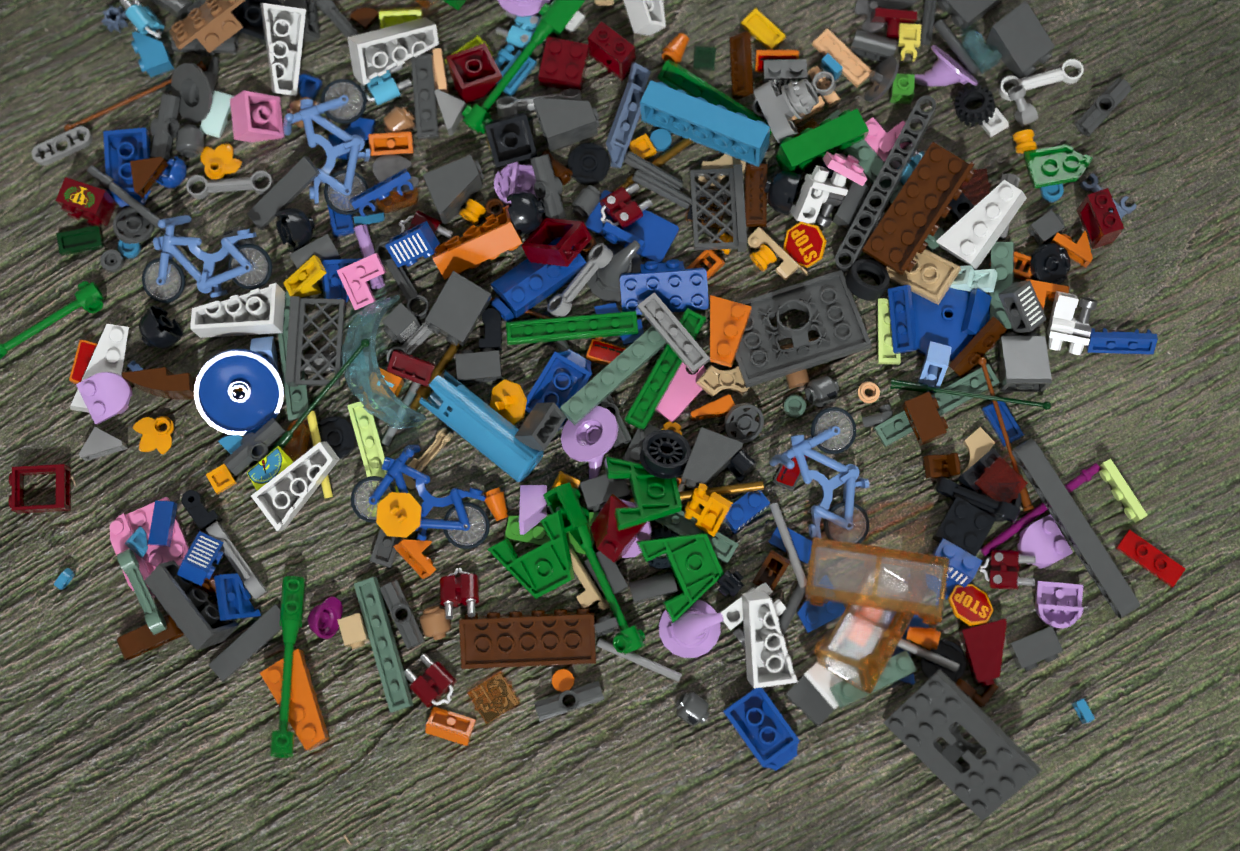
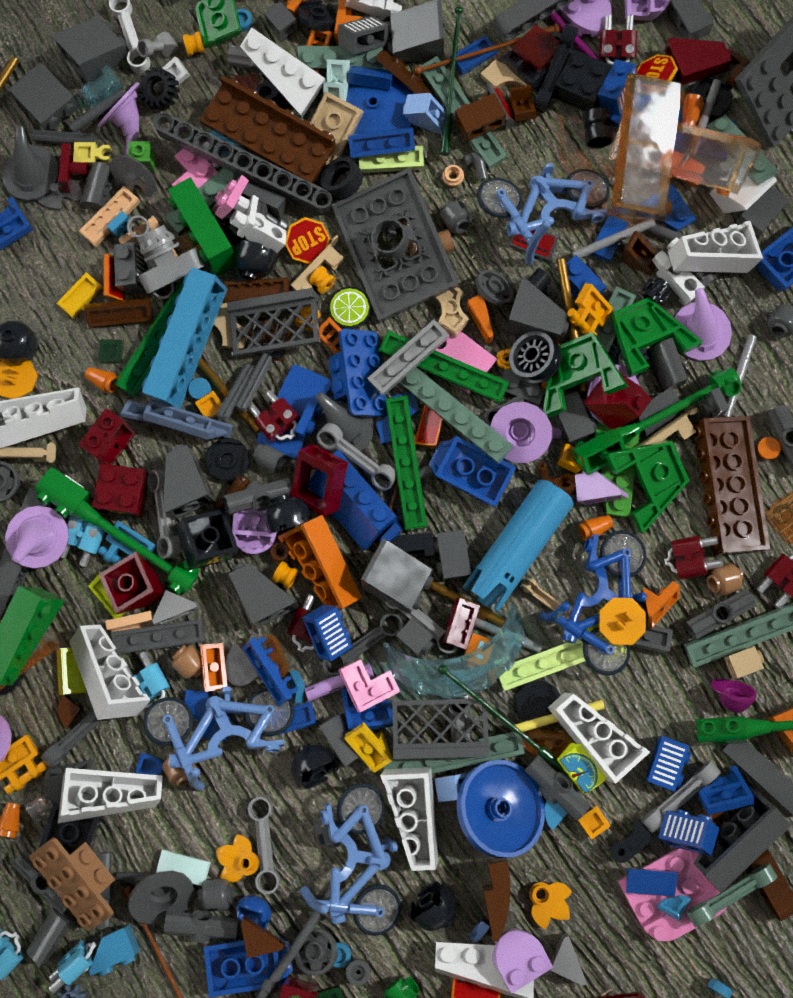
camera: 90 degrees left, 0 degrees up
(256, 117) = (186, 821): bright pink slope -> none
(268, 550) = (667, 763): none -> blue brick
(283, 192) = (274, 780): dark grey tile -> none
(509, 401) = (488, 520): light orange piece -> none
(540, 426) = (518, 480): dark grey brick -> none
(542, 471) = (564, 481): none -> reddish brown plate
(727, 327) = (398, 306): orange wing -> none
(734, 282) = (350, 308): none -> tile
(794, 406) = (471, 244): sand green tile -> none
(911, 539) = (598, 126): none -> black wheel
(943, 445) = (510, 122): none -> slope

